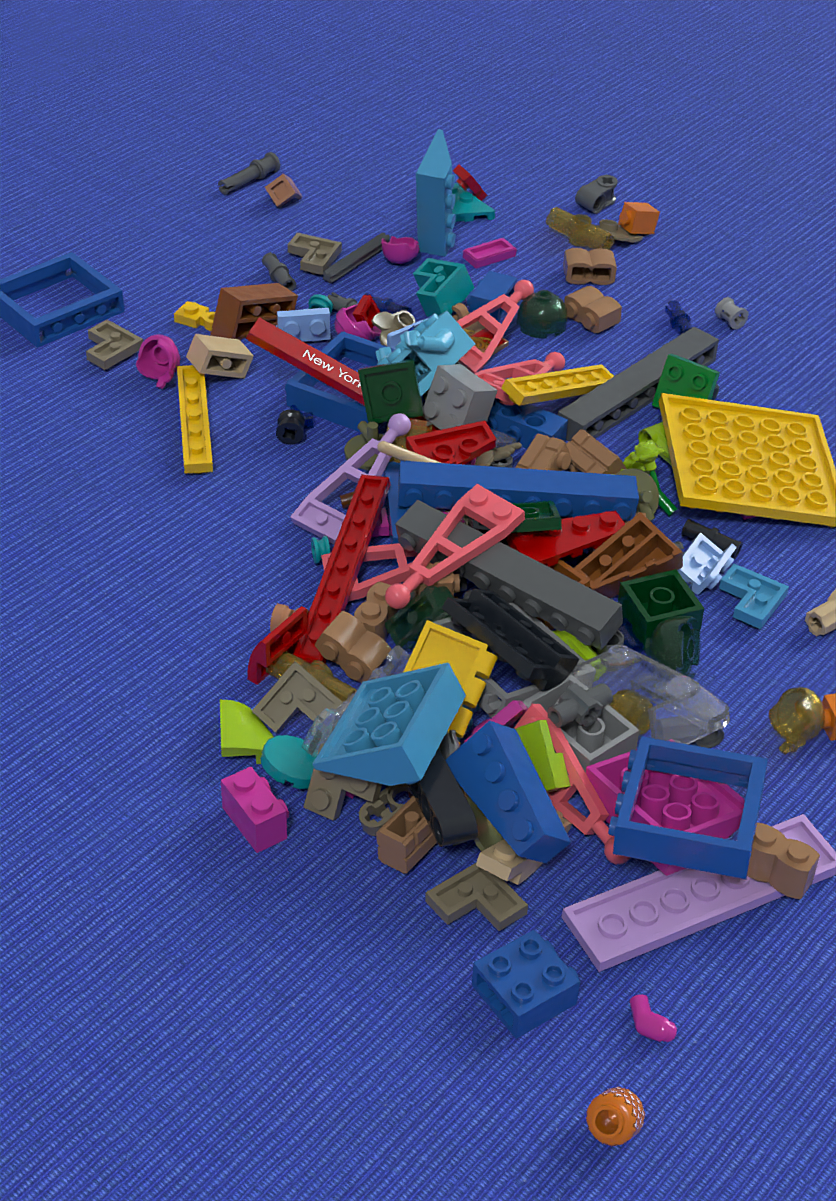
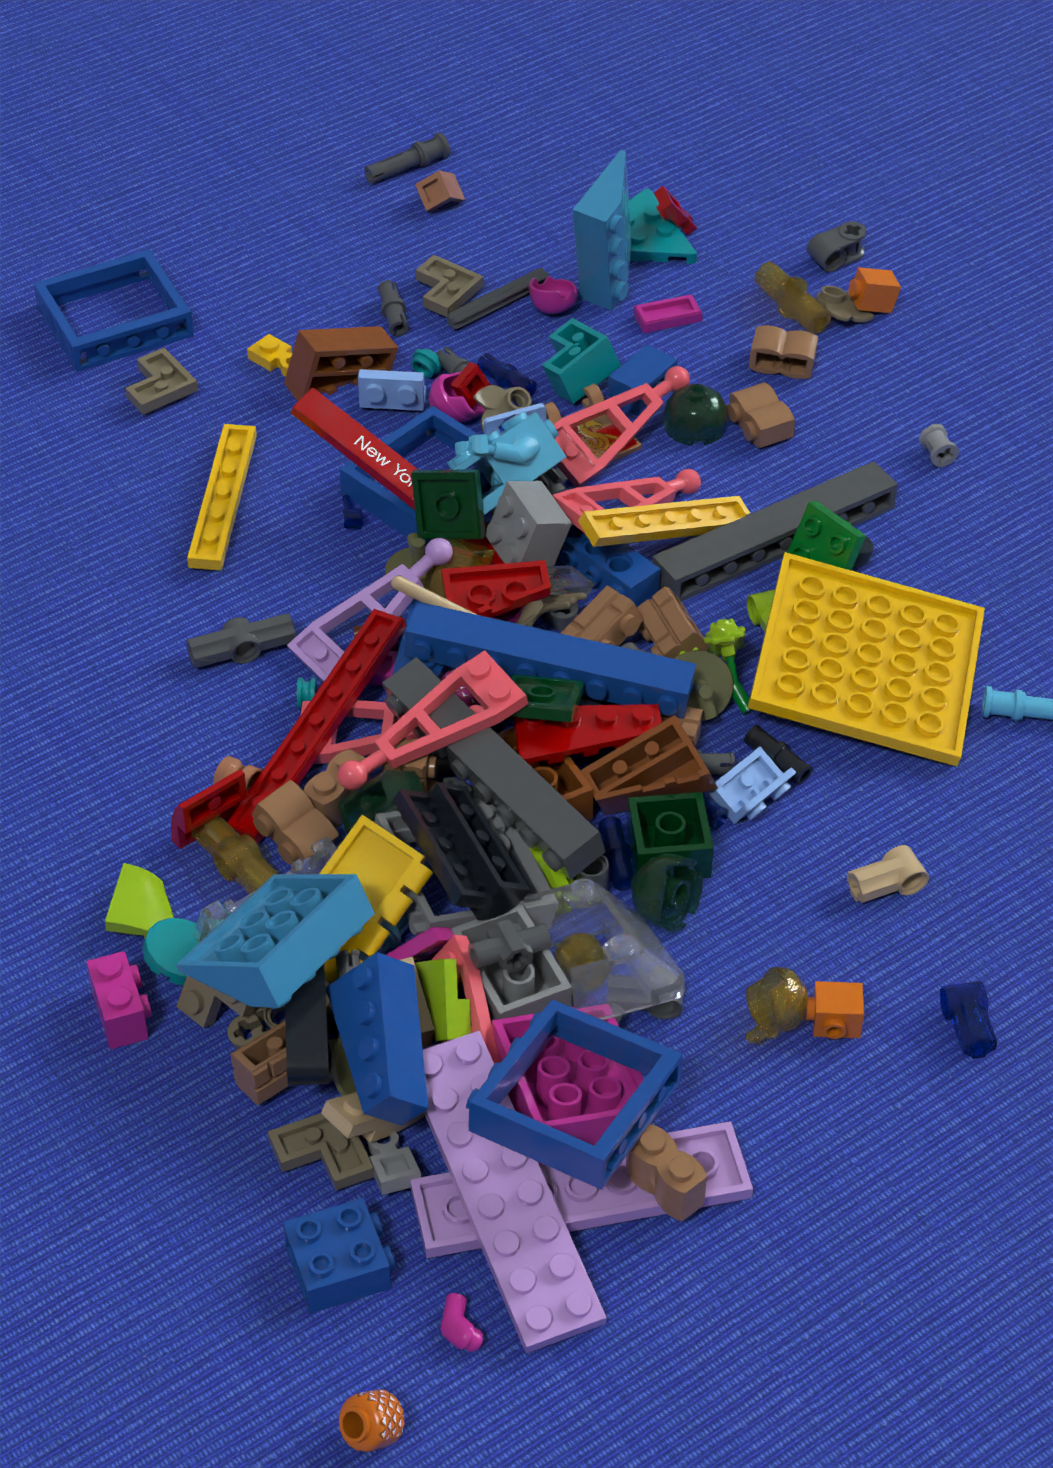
camera: 15 degrees right, 5 degrees up
(158, 359) = (204, 412): dark pink hat -> none
(219, 356) = (268, 420): tan brick -> none
(250, 519) = (240, 640): none -> dark grey piece
(291, 693) = (205, 870): dark tan plate -> none
(294, 422) = (329, 525): black wheel -> none
(543, 902) = (392, 1165): none -> light grey plate
(658, 913) = (508, 1206): none -> lavender plate
(678, 318) = (868, 445): clear blue pin -> none
(758, 594) = (803, 838): dark azure plate -> none

